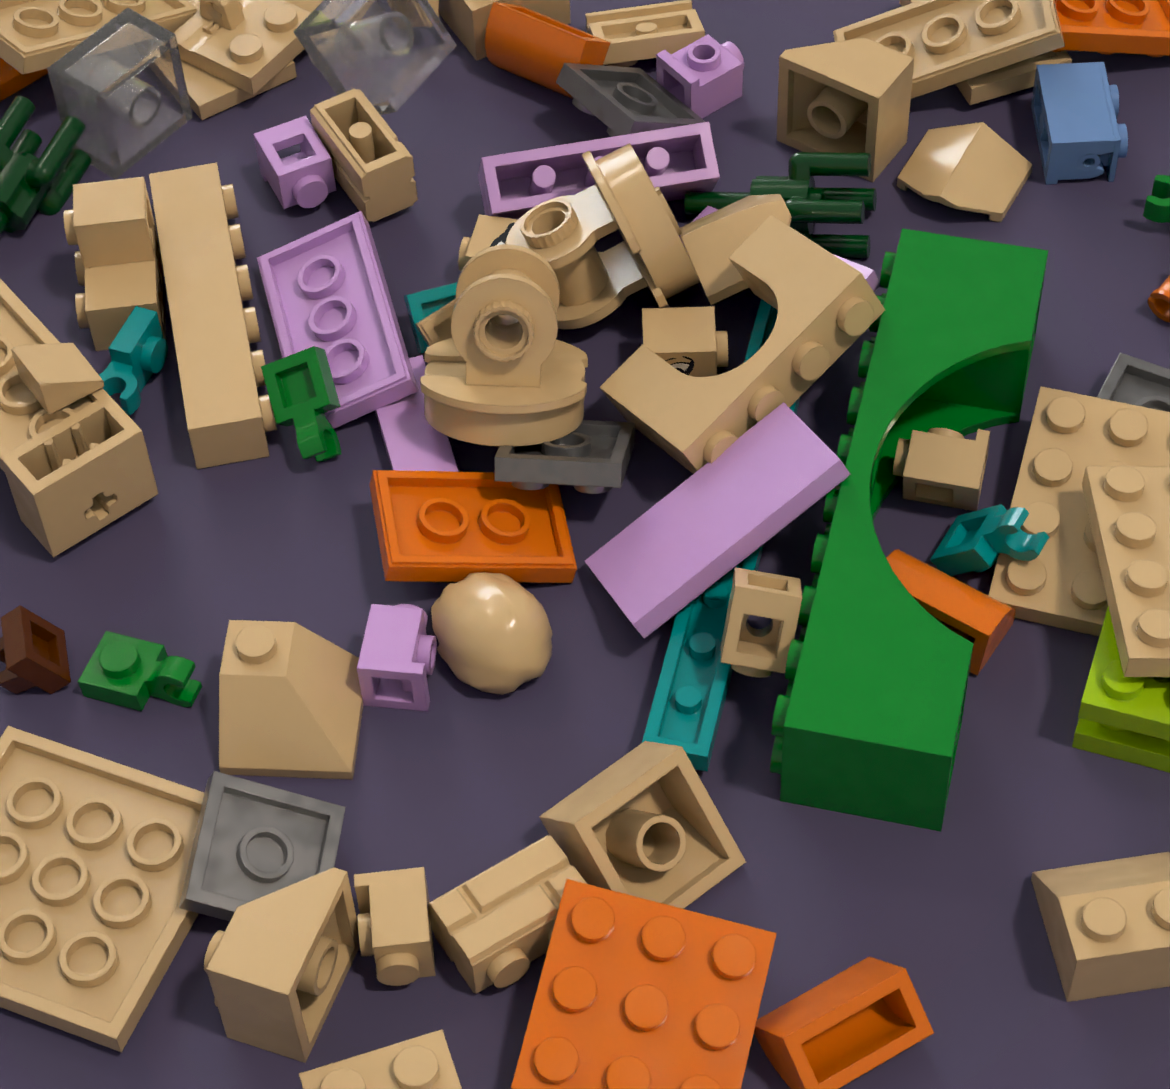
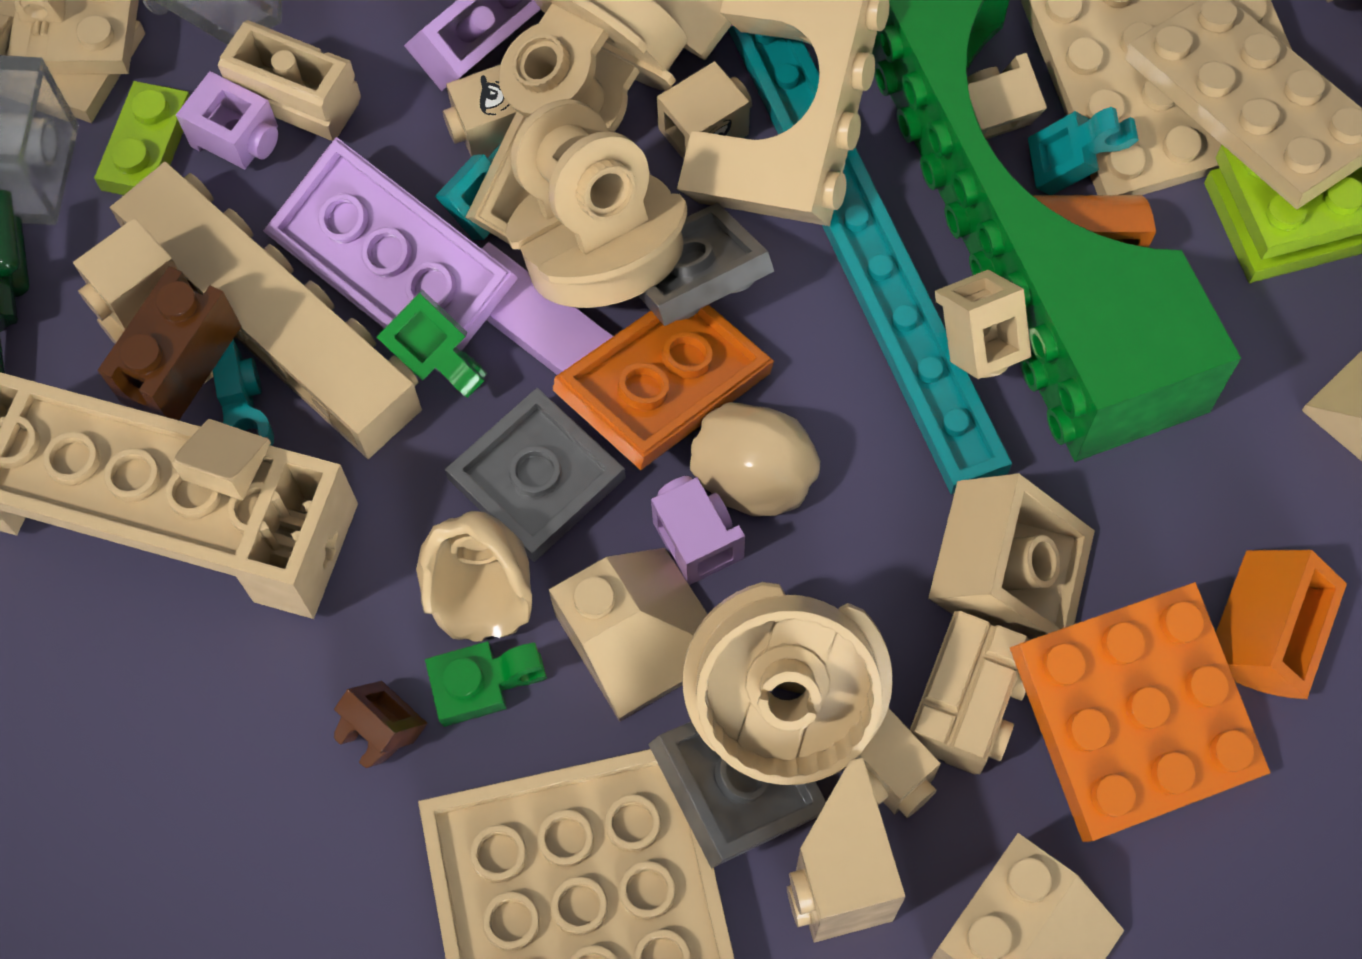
camera: 35 degrees left, 15 degrees up
(96, 284) = (170, 347): none -> reddish brown brick
(190, 587) = (475, 577): none -> tan hair
(227, 143) = (142, 137): none -> lime plate
(308, 546) = (536, 473): none -> flat silver plate
(347, 744) = (793, 644): none -> tan piece
(716, 519) = (875, 254): lavender tile -> none

